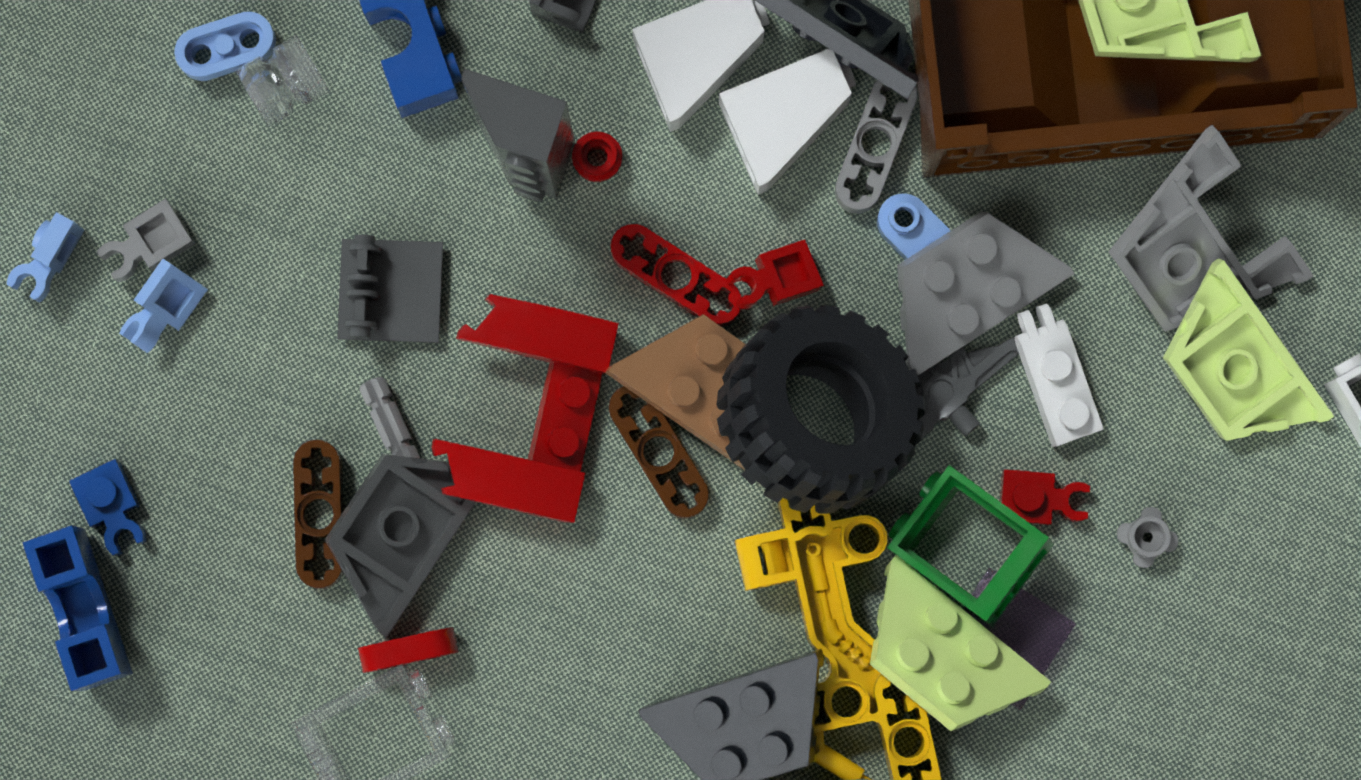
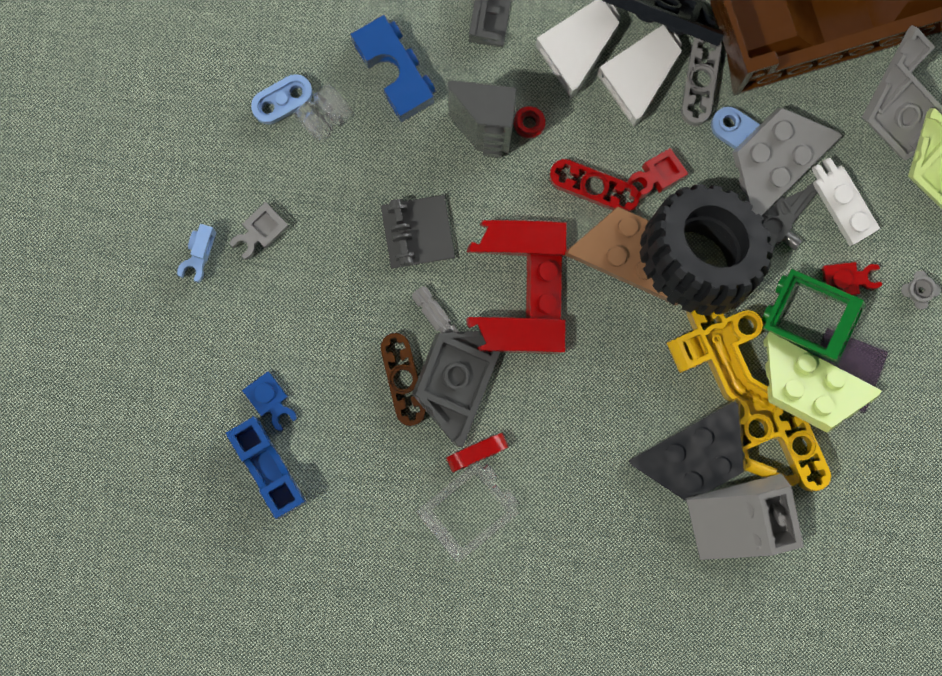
camera: 15 degrees left, 0 degrees up
(167, 299) = (280, 265): light blue plate -> none
(667, 491) = (615, 322): reddish brown beam -> none

